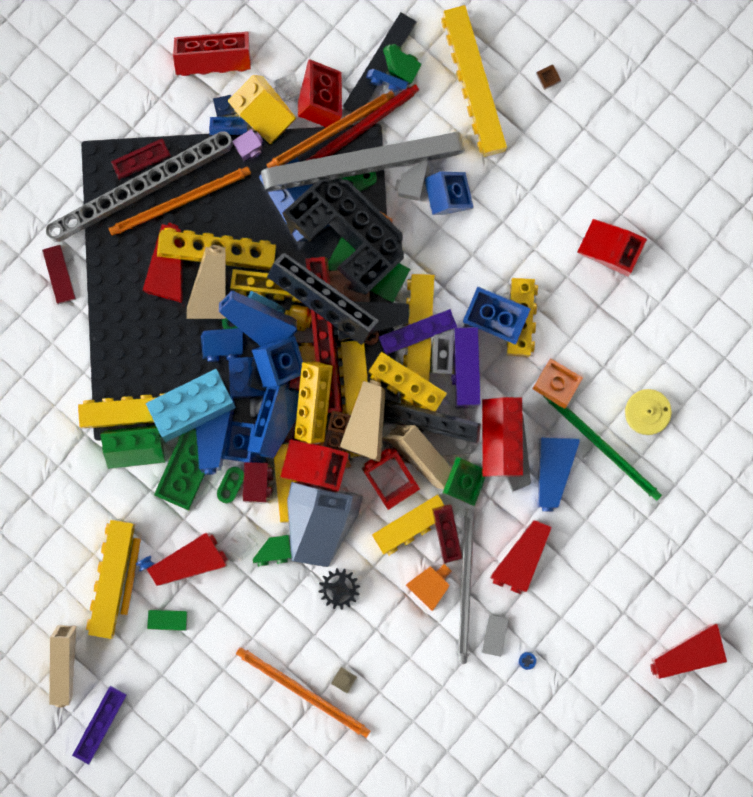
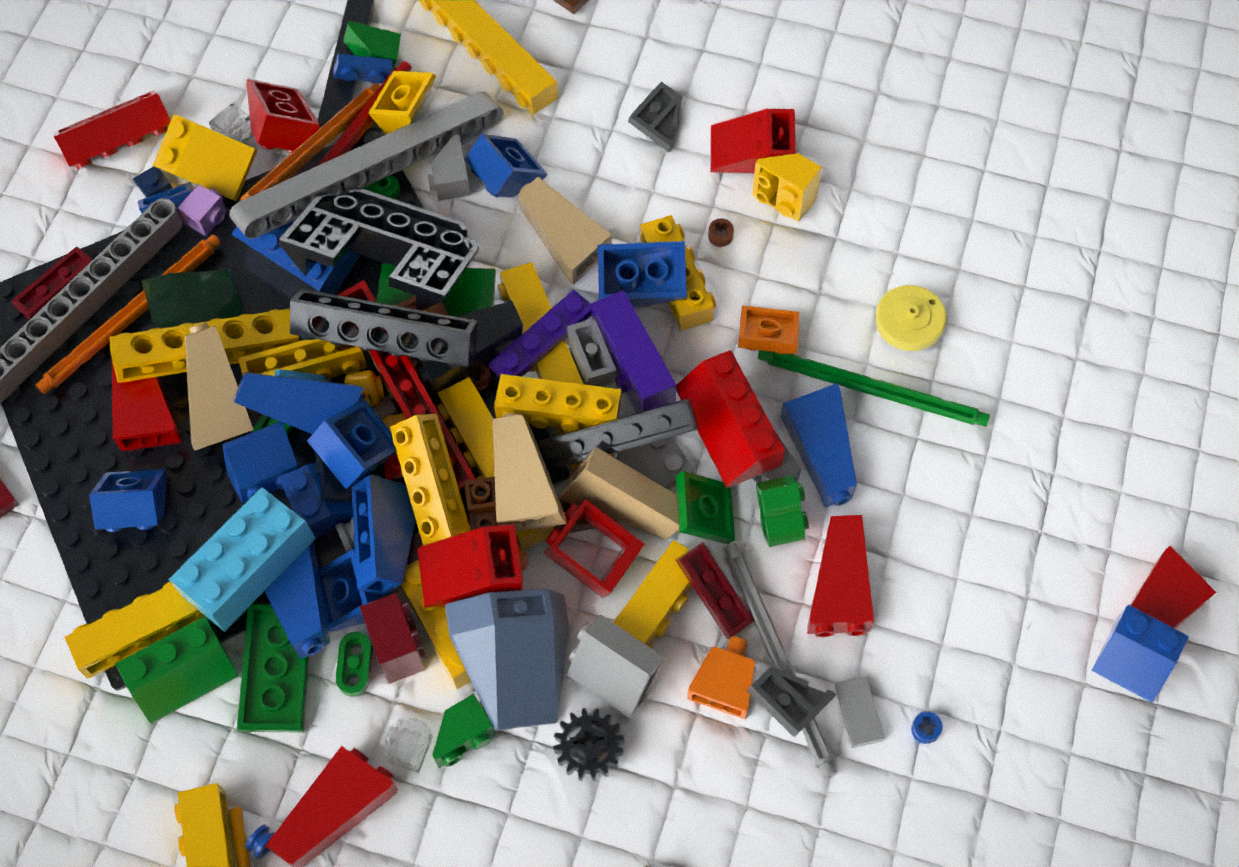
camera: 25 degrees left, 20 degrees down
(140, 329) = (129, 499): none -> blue slope
(220, 214) = (191, 297): none -> clear green slope
(371, 553) = (614, 665): none -> light grey brick
(402, 119) = (401, 99): none -> yellow slope
(458, 615) = (789, 699): none -> dark grey wing
(465, 257) = (563, 229): none -> tan slope
(507, 504) = (781, 510): none -> green brick
(563, 197) = (658, 115): none -> dark grey wing
(567, 302) = (720, 224): none -> copper bush
(617, 288) = (787, 184): none -> yellow slope
(660, 678) = (1139, 653): none -> slope

